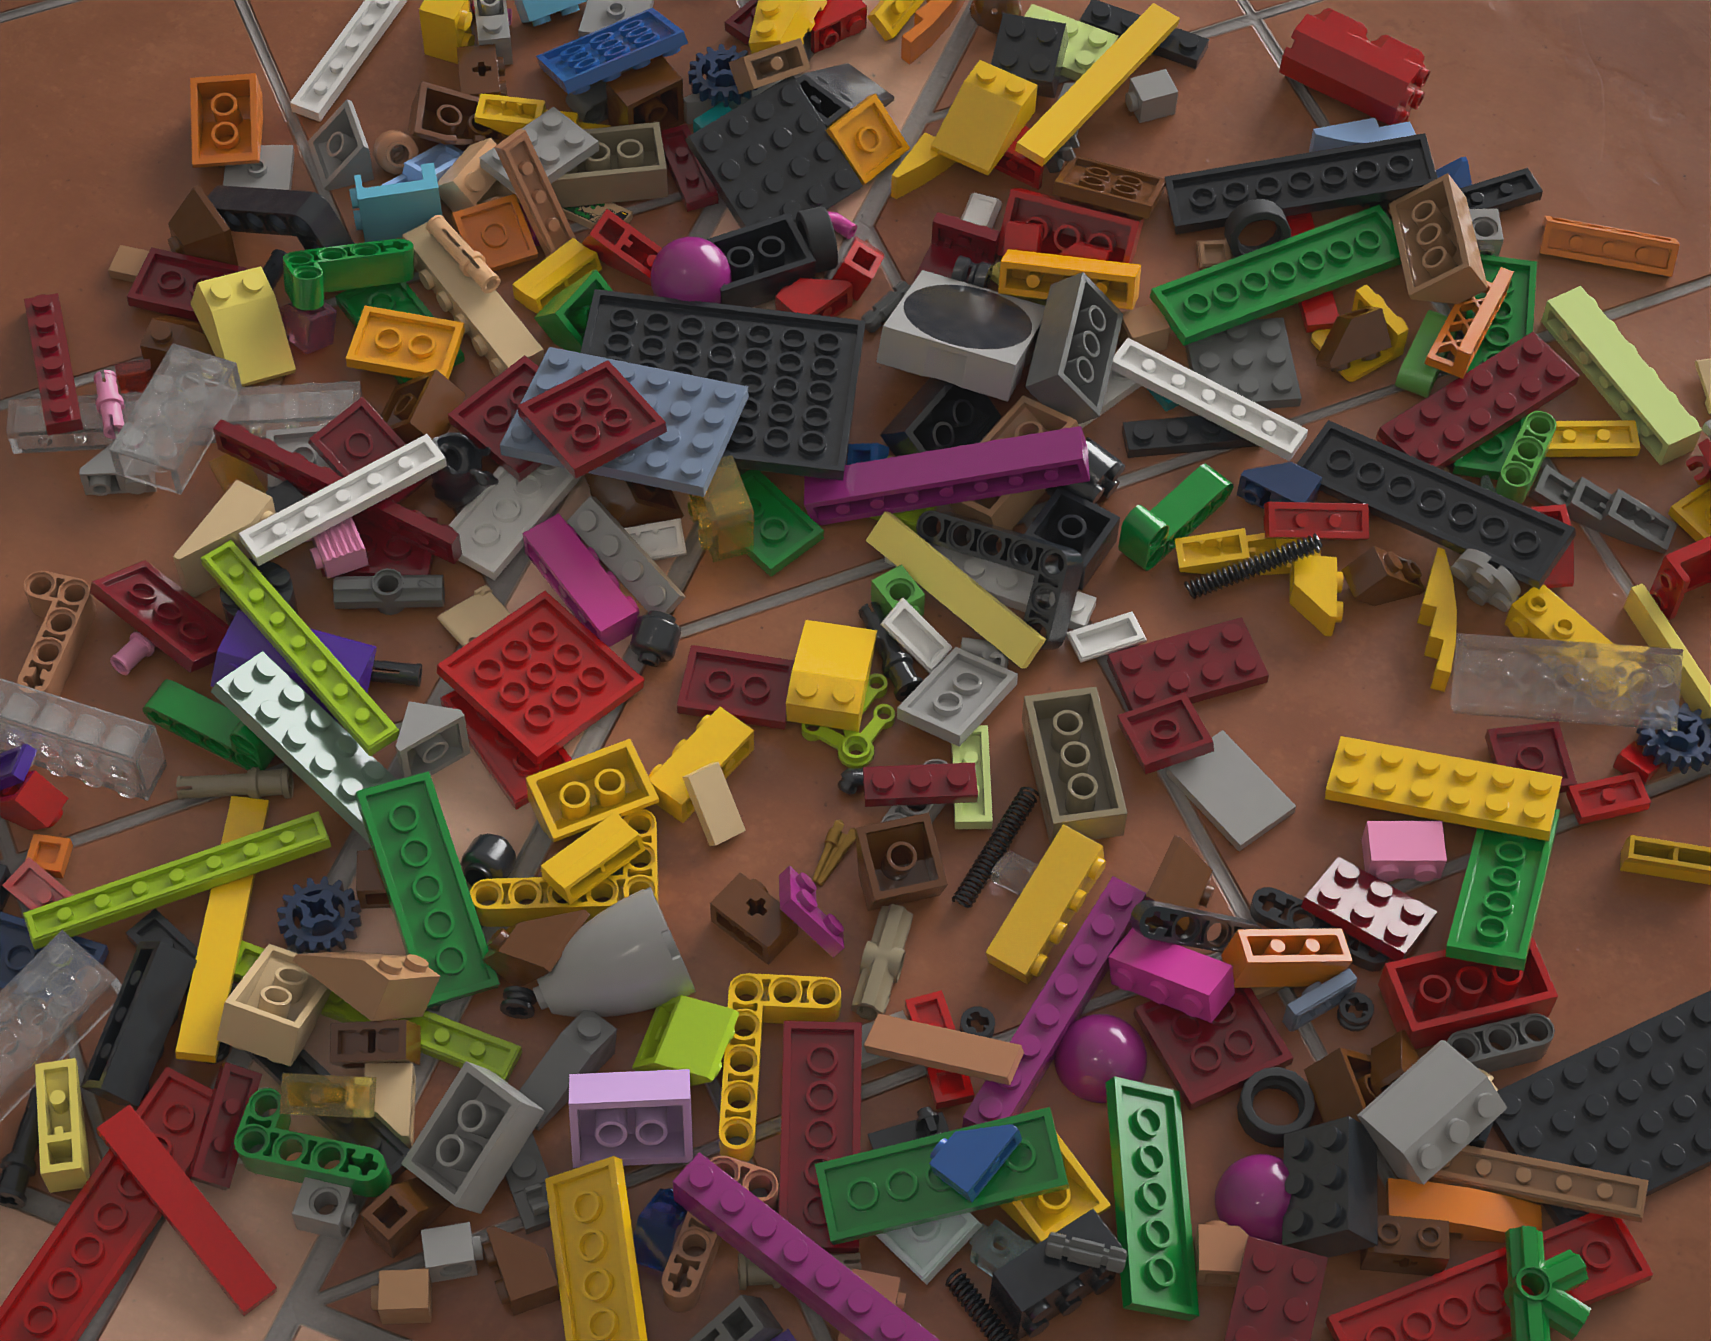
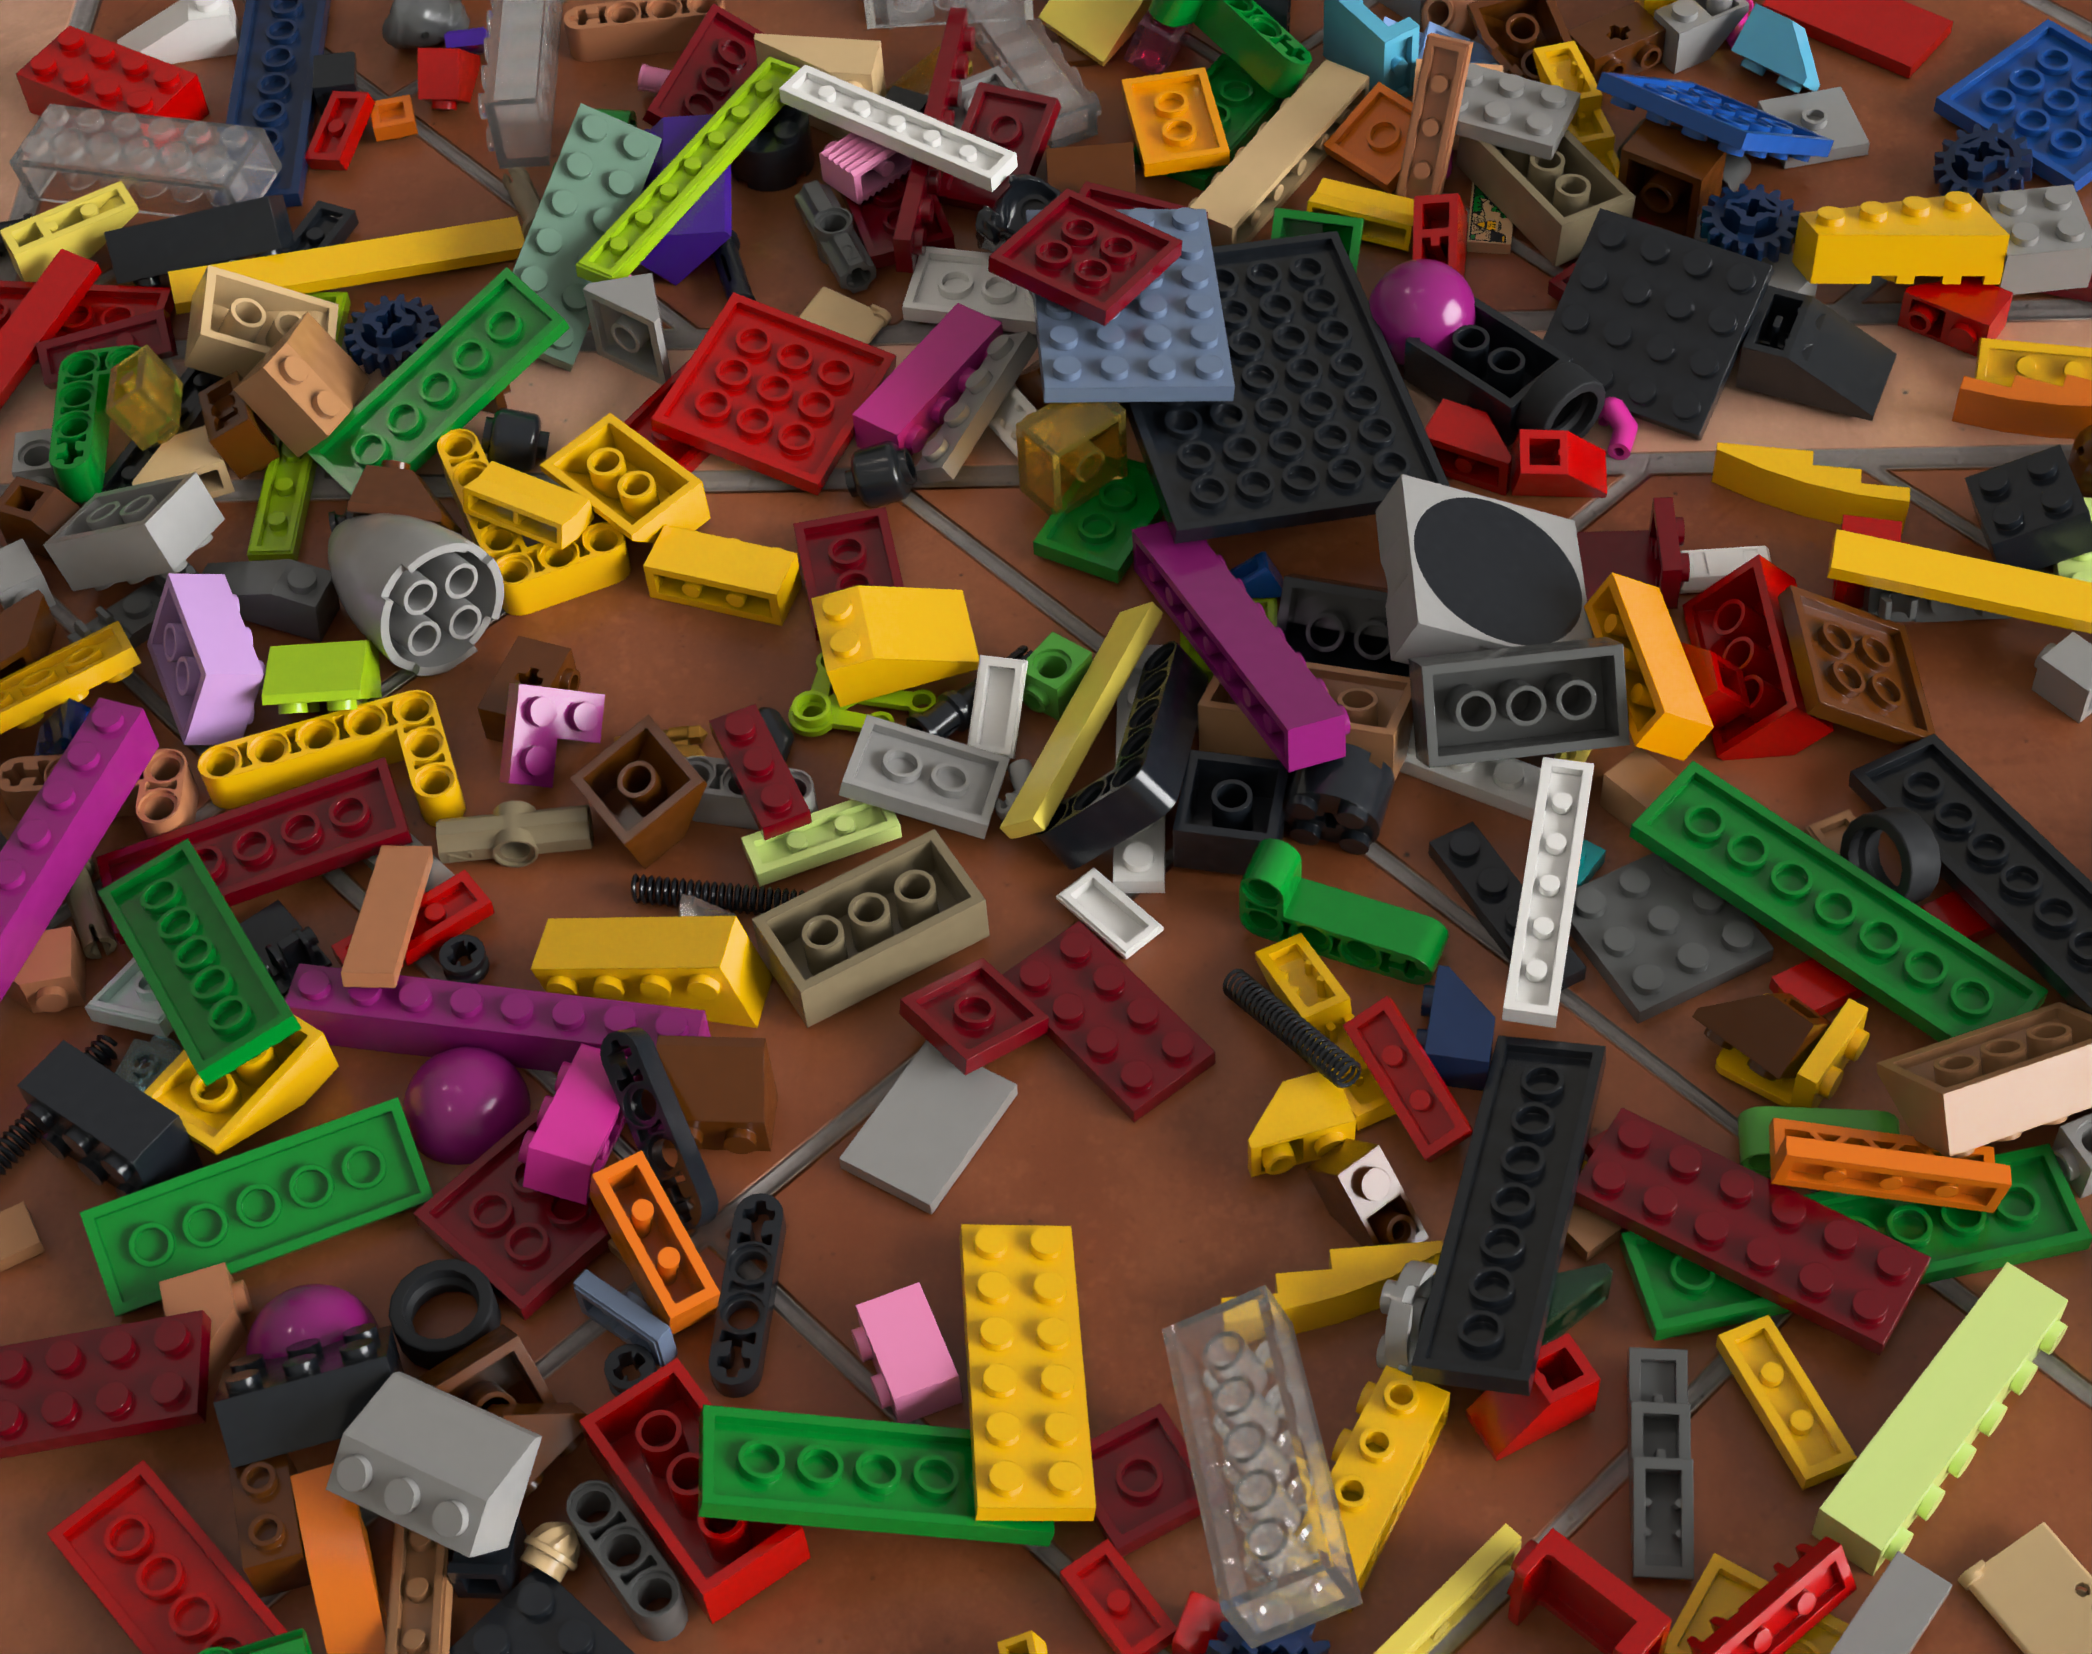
camera: 75 degrees right, 5 degrees down
(177, 879) = (384, 206): lime tile -> none
(470, 262) = (1310, 117): light nougat pin -> none
(714, 803) = (662, 597): tan tile -> none
(769, 65) = (1765, 237): medium nougat brick -> none
(868, 138) = (1764, 401): light orange plate -> none
(971, 272) = (1599, 562): black wheel -> none
(973, 1157) = (194, 961): blue slope -> none
(985, 117) = (1868, 488): yellow slope -> none
(1023, 236) = (1699, 608): red brick -> none
(1086, 1252) = (104, 1119): dark grey axle -> none
(1369, 909) = (790, 1334): plate -> none
(1526, 456) = (1692, 1294): bright green beam -> none

